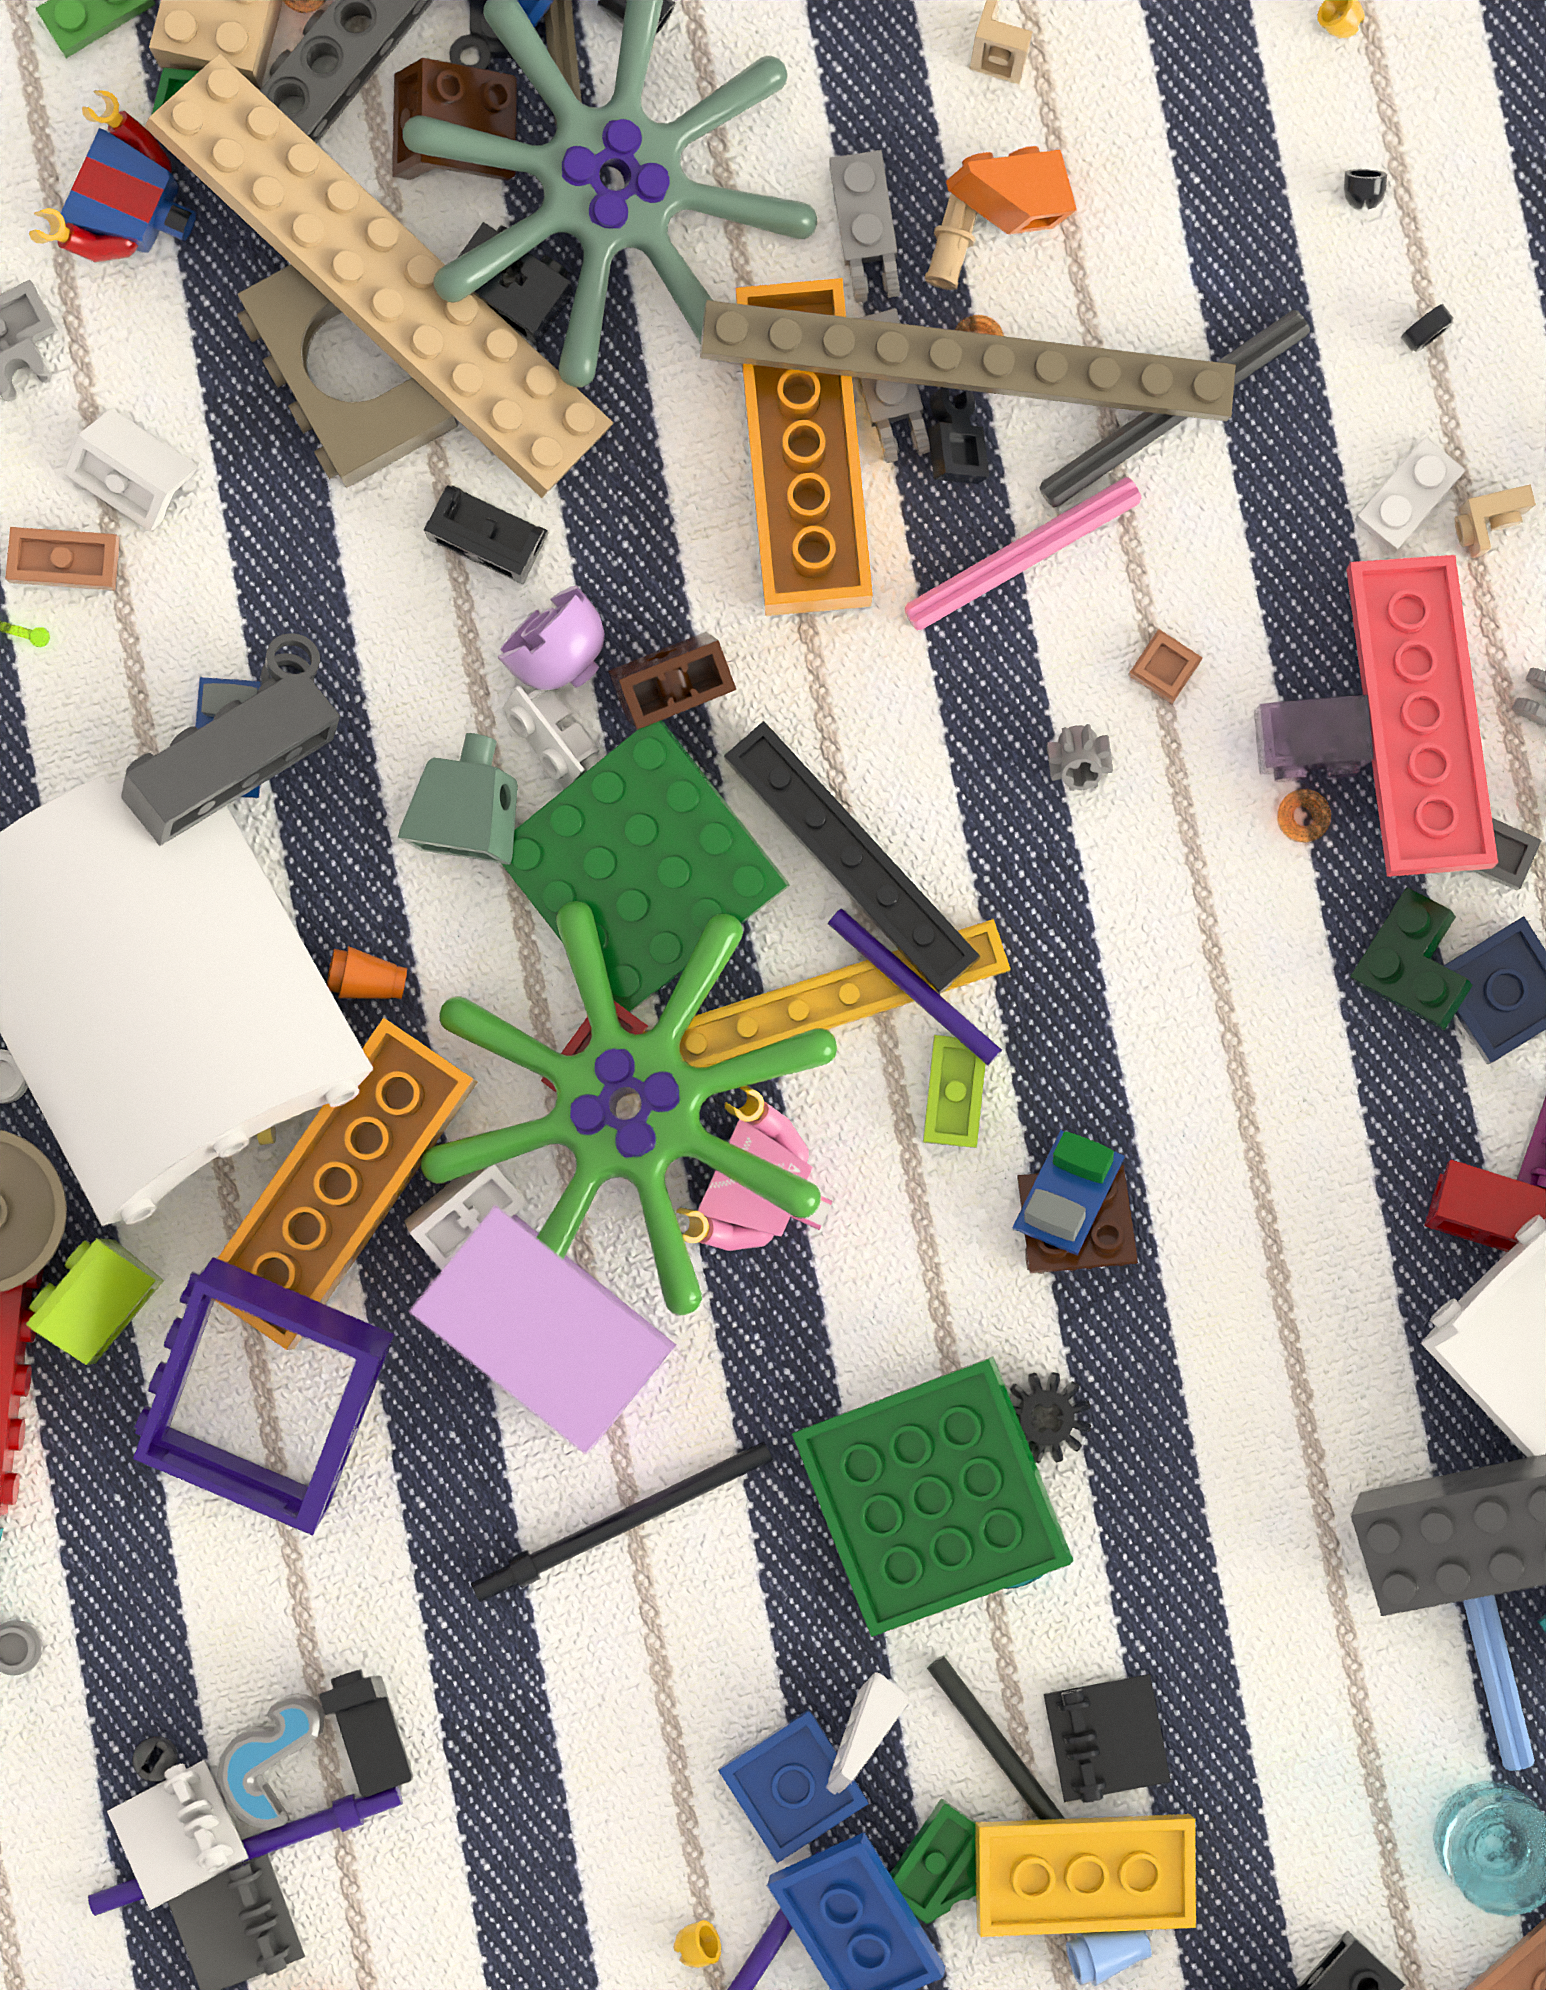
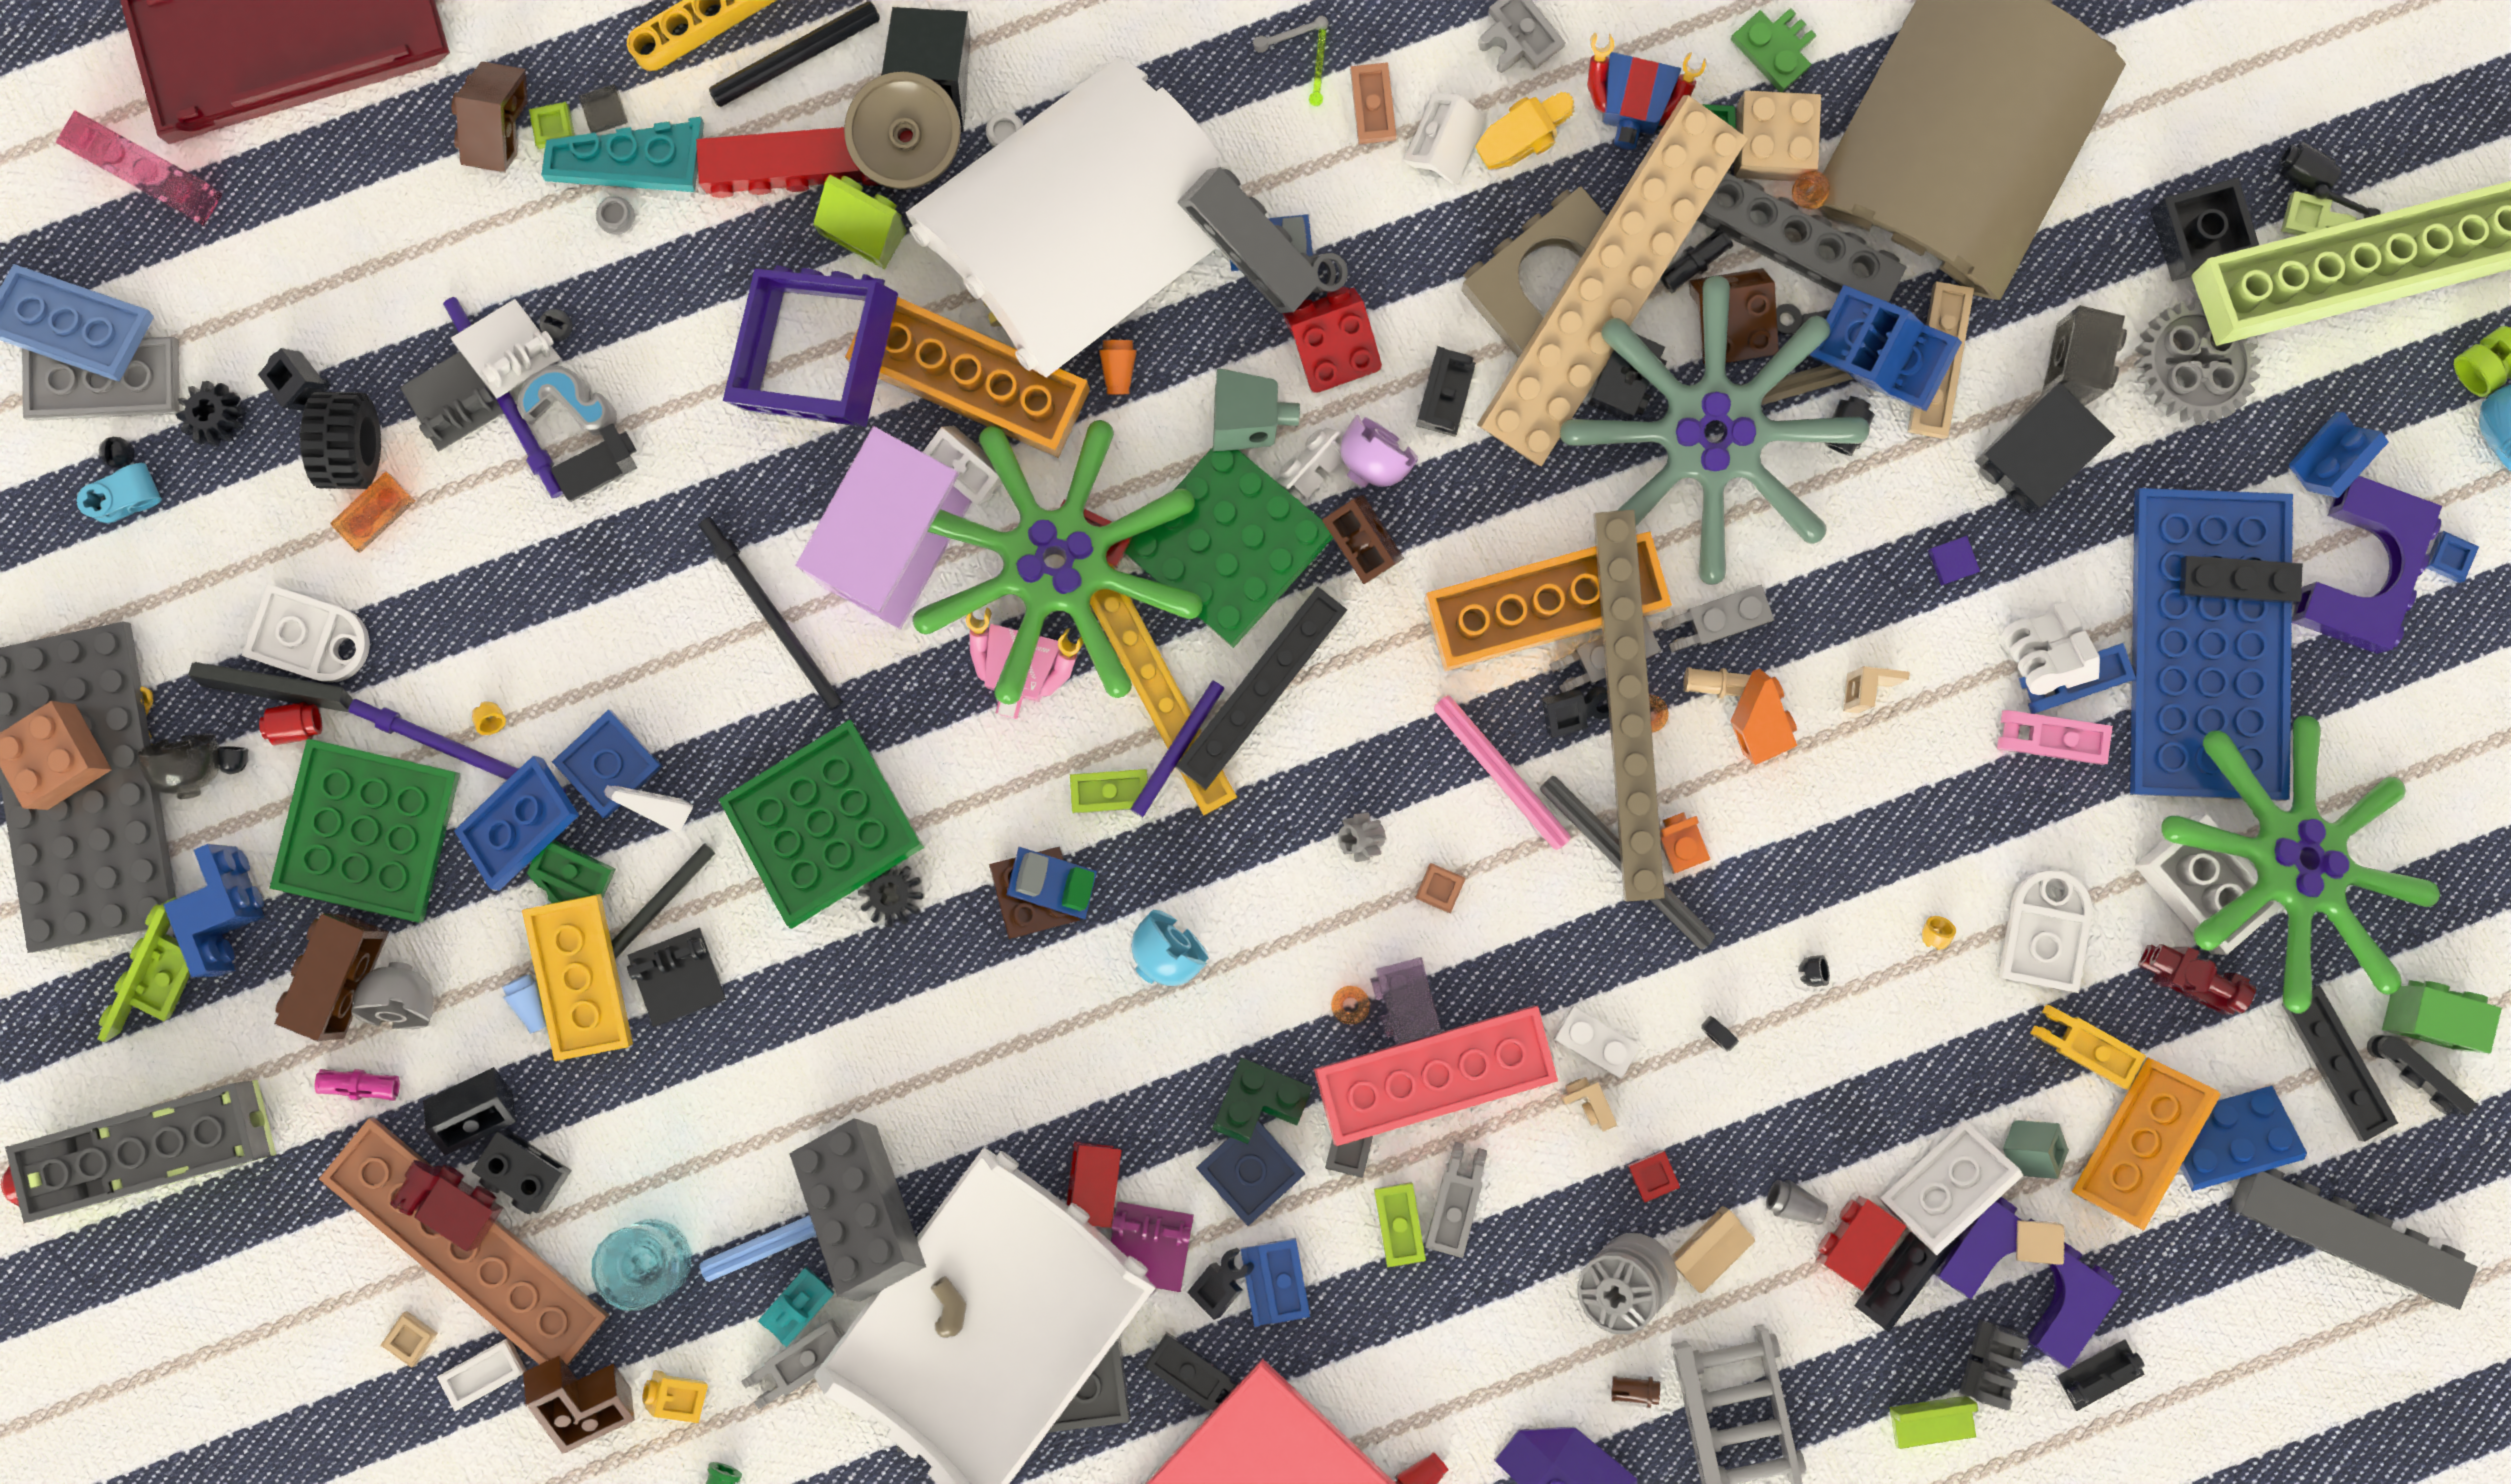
camera: 85 degrees right, 0 degrees up
(141, 353) = (1524, 130): none -> yellow hinge
(366, 158) = (1696, 260): none -> black pin
(384, 671) = (1334, 339): none -> red bracket
(1161, 328) = (1682, 843): none -> orange bracket
(1192, 1051) = (1165, 952): none -> medium azure cylinder

